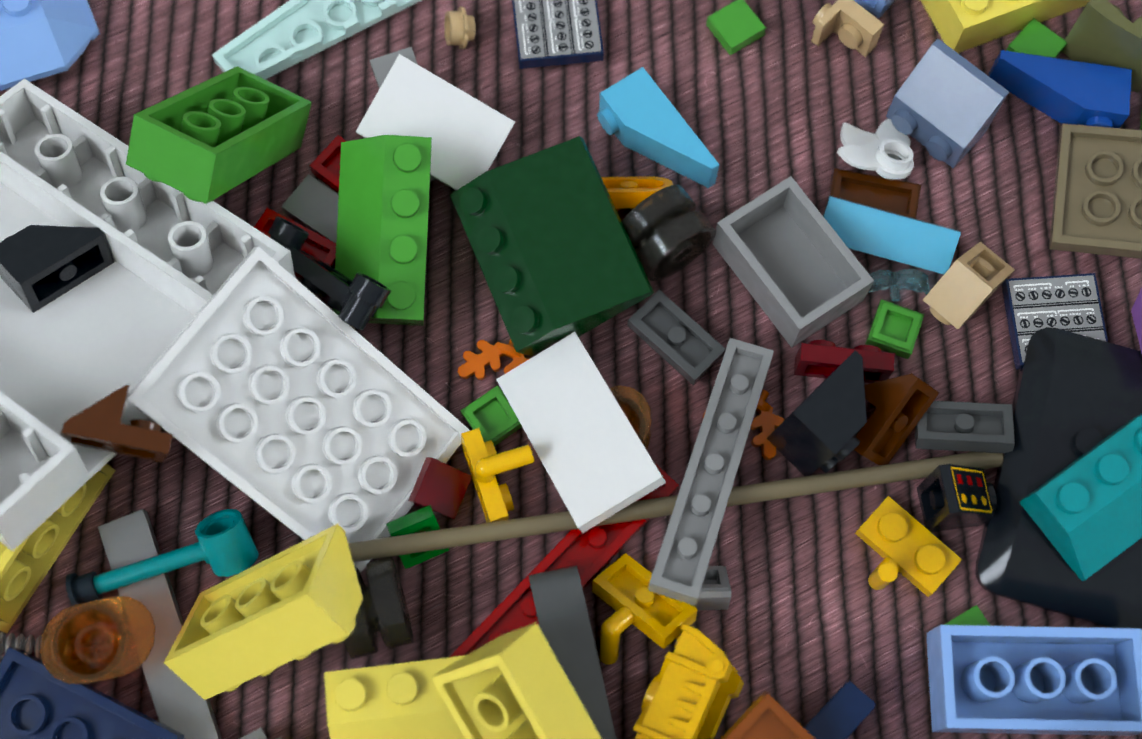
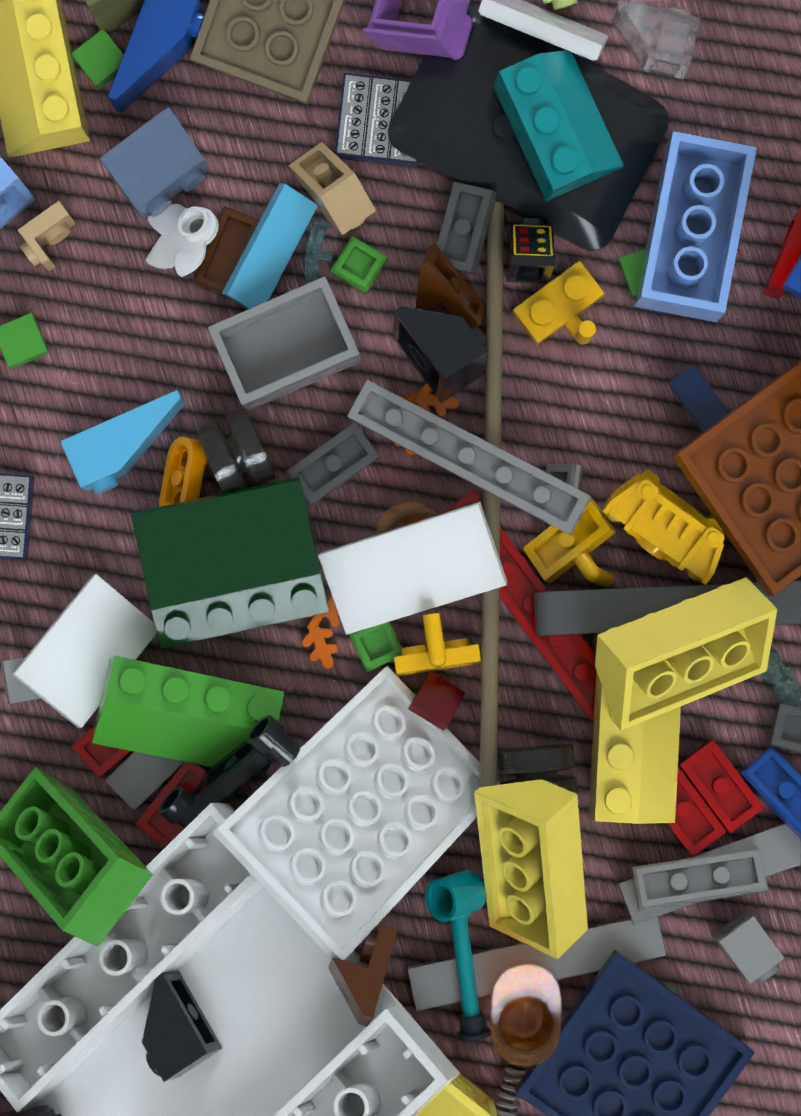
camera: 80 degrees left, 15 degrees up
(416, 522) = (469, 728): green plate -> none
(822, 357) = (379, 336): dark red plate -> none

